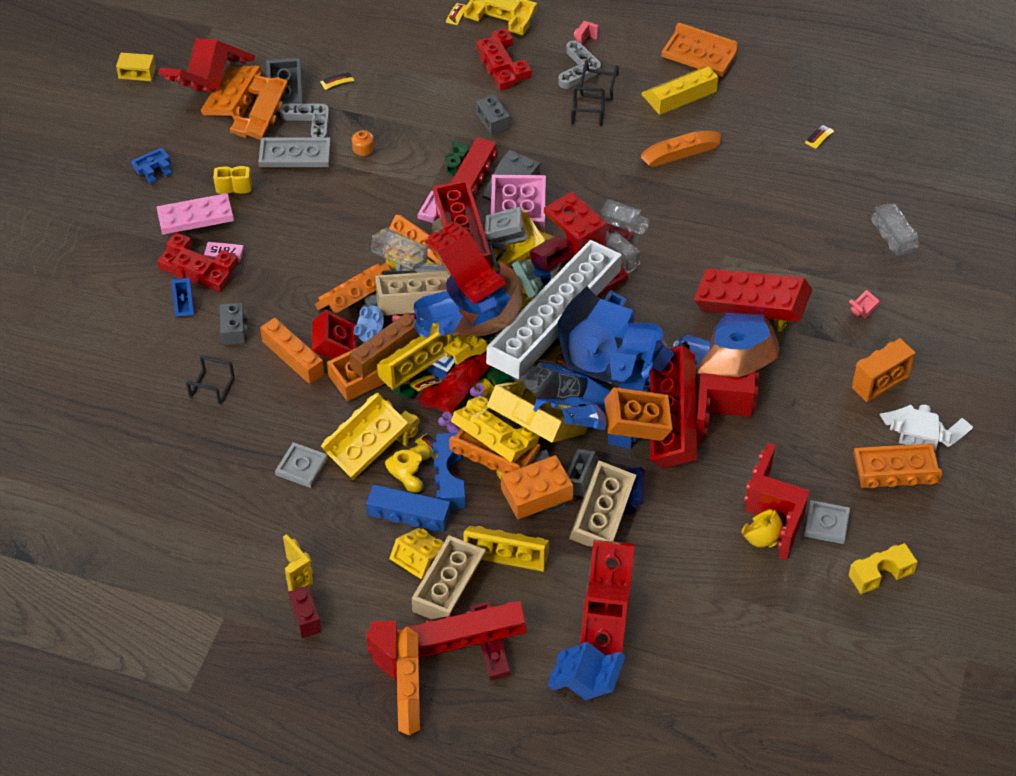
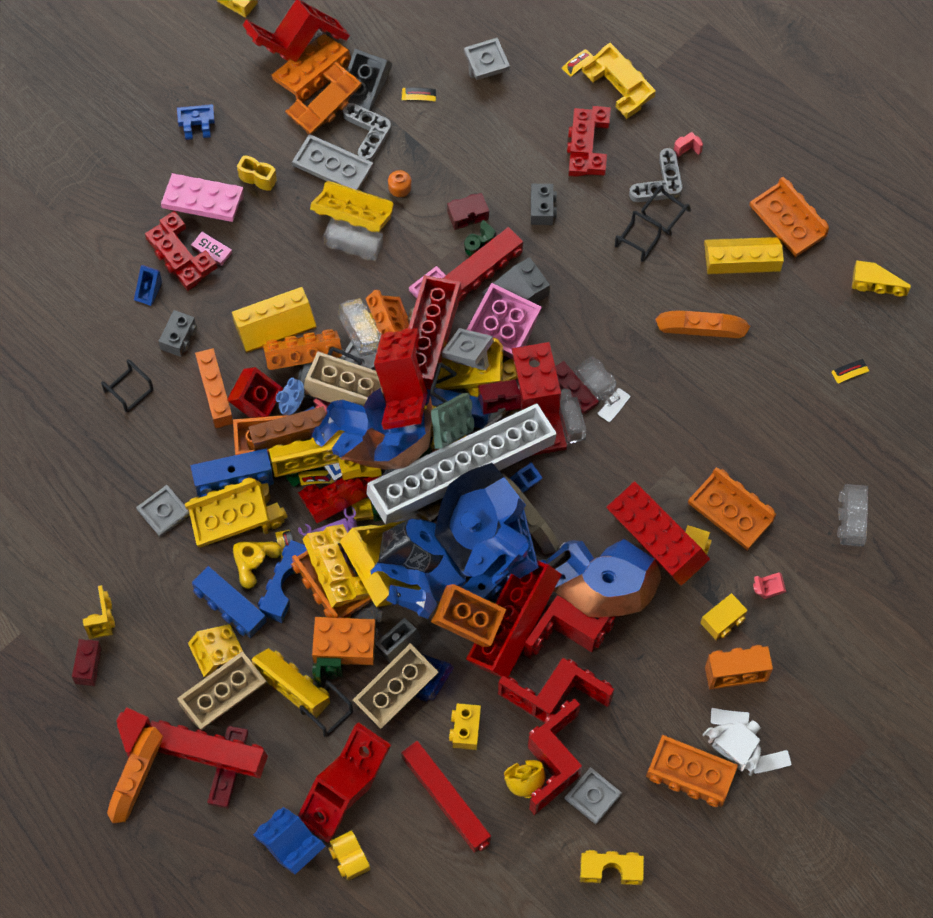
camera: 25 degrees right, 15 degrees up
(312, 279) = (274, 319): none -> yellow slope
(332, 171) = (353, 206): none -> yellow bracket
(341, 405) = (232, 470): none -> blue brick
(347, 197) = (353, 239): none -> clear brick
(382, 32) = (486, 59): none -> light grey bracket
(433, 141) = (467, 210): none -> dark red brick
(534, 518) = (327, 667): none -> dark green bracket
(563, 569) = (303, 710): none -> black piece
(647, 237) = (609, 413): none -> white sticker
(647, 661) = (349, 855): none -> yellow brick
(683, 514) = (466, 726): none -> yellow brick
(703, 576) = (446, 797): none -> red brick
(749, 436) = (556, 690): none -> red bracket
(795, 66) = (872, 277): none -> yellow slope
(796, 259) = (732, 508): none -> orange bracket
(843, 342) = (724, 617): none -> yellow brick

